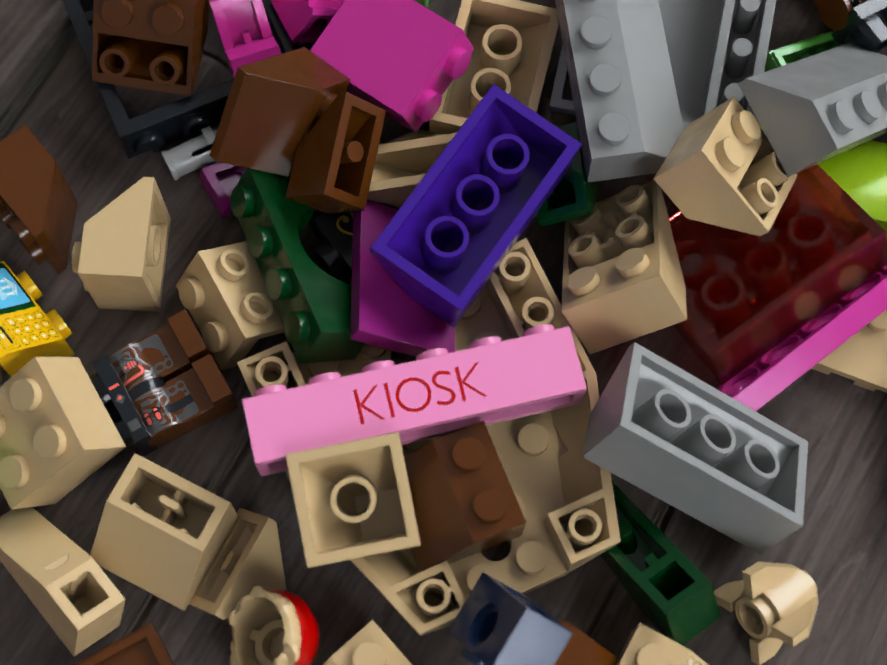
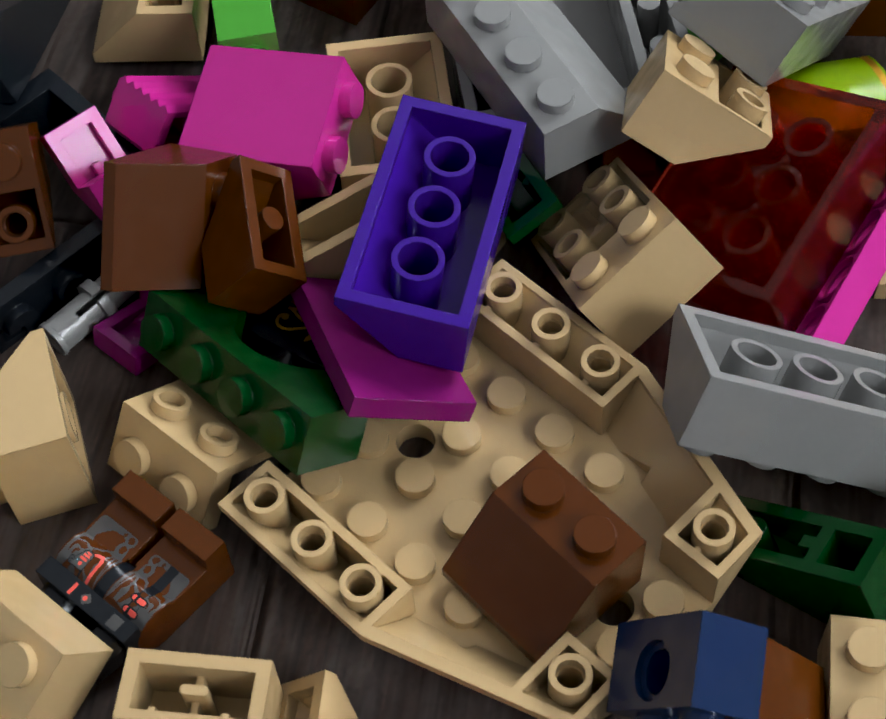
camera: 15 degrees left, 15 degrees down
(353, 499) = (430, 585): tan slope -> none
(418, 397) = (446, 458): bright pink brick -> none

